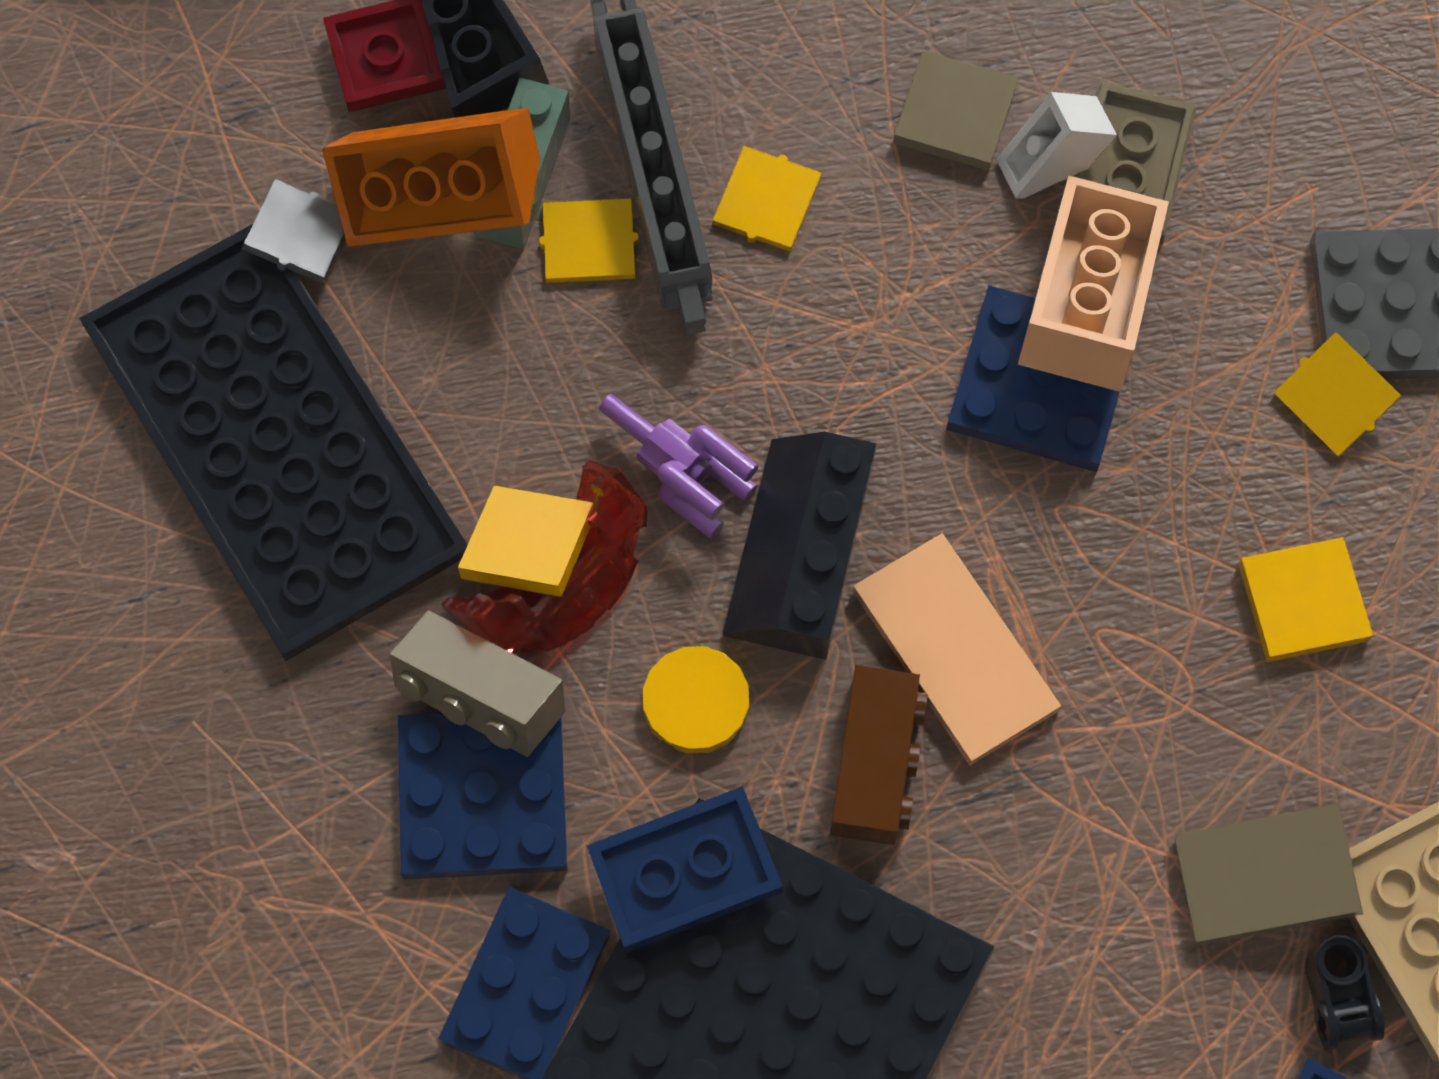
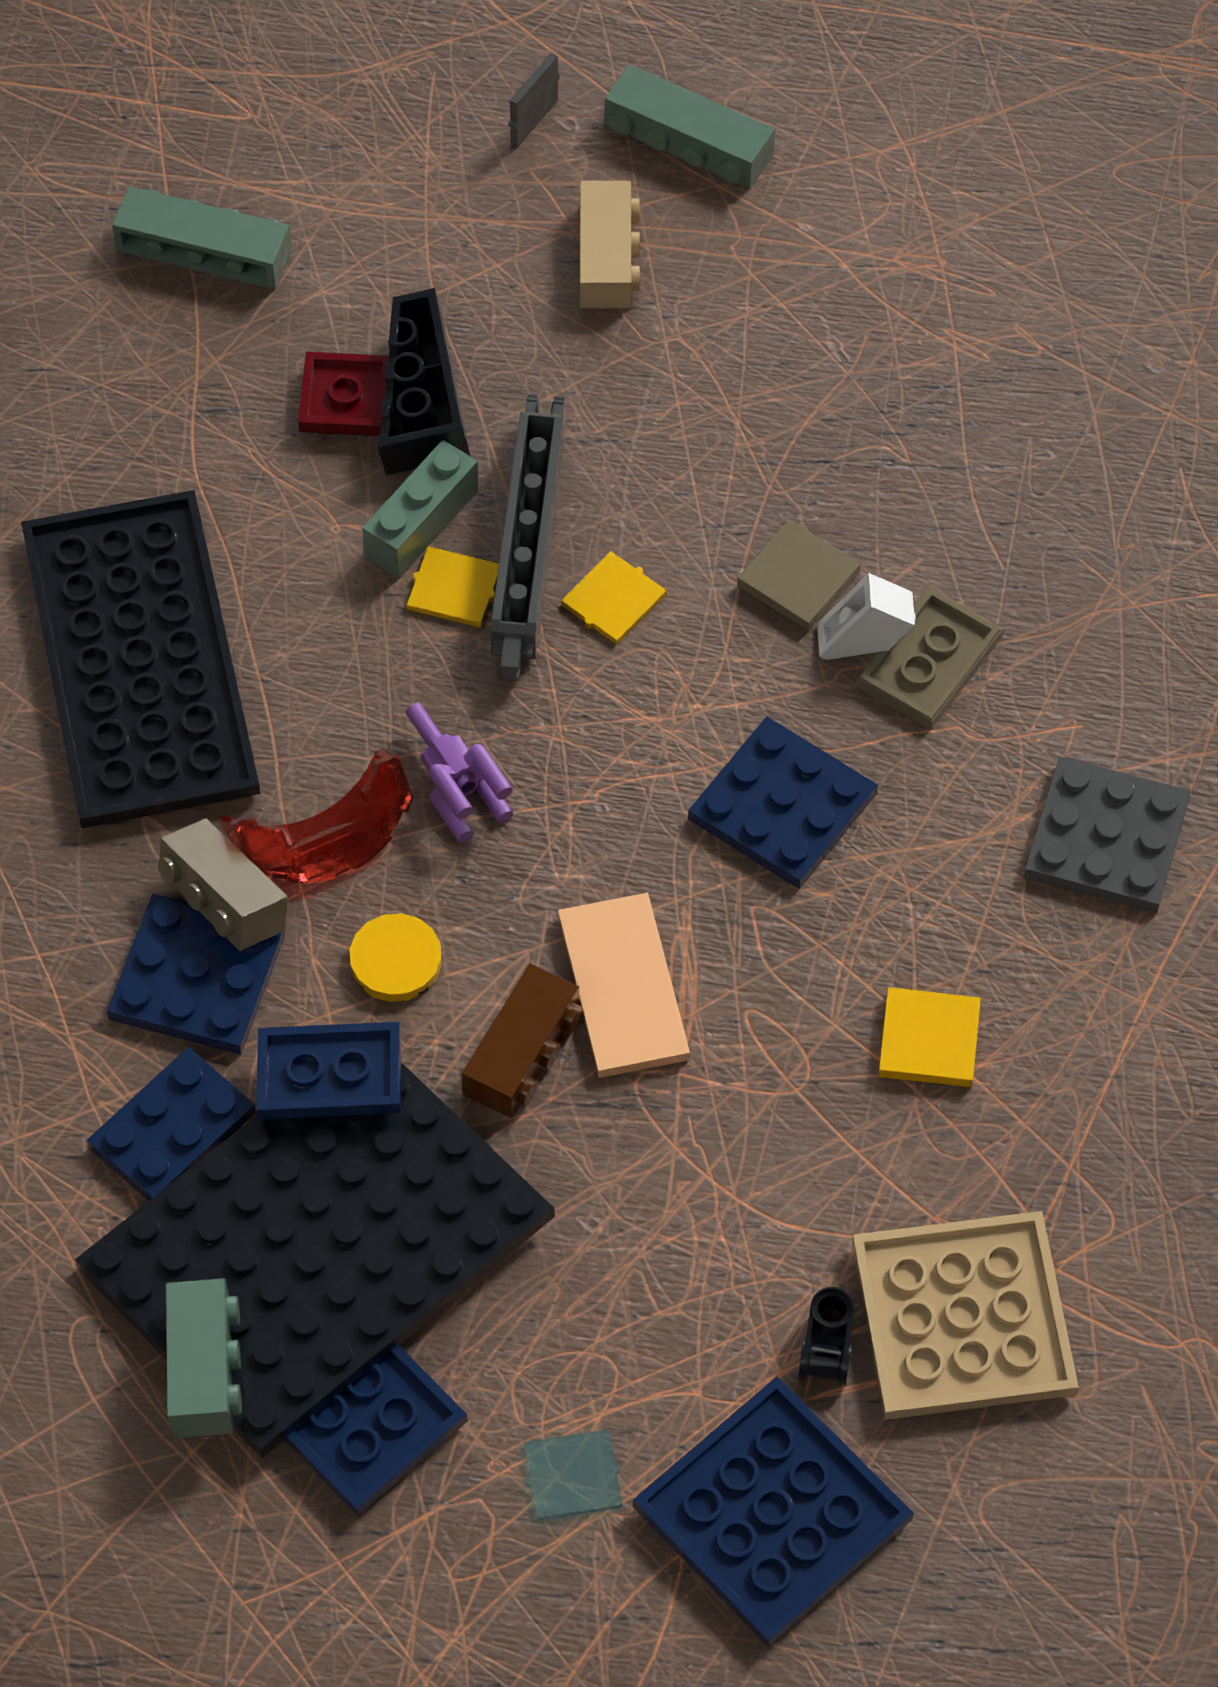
camera: 20 degrees right, 10 degrees down
(296, 231) = (220, 507): piece -> none
(435, 177) = (341, 494): orange slope -> none
(526, 541) = (306, 793): yellow tile -> none
(800, 542) = (531, 866): black slope -> none
(1094, 284) = (845, 732): light nougat brick -> none
(1268, 874) = (804, 1230): dark tan tile -> none
(1337, 394) = (1023, 886): yellow piece -> none

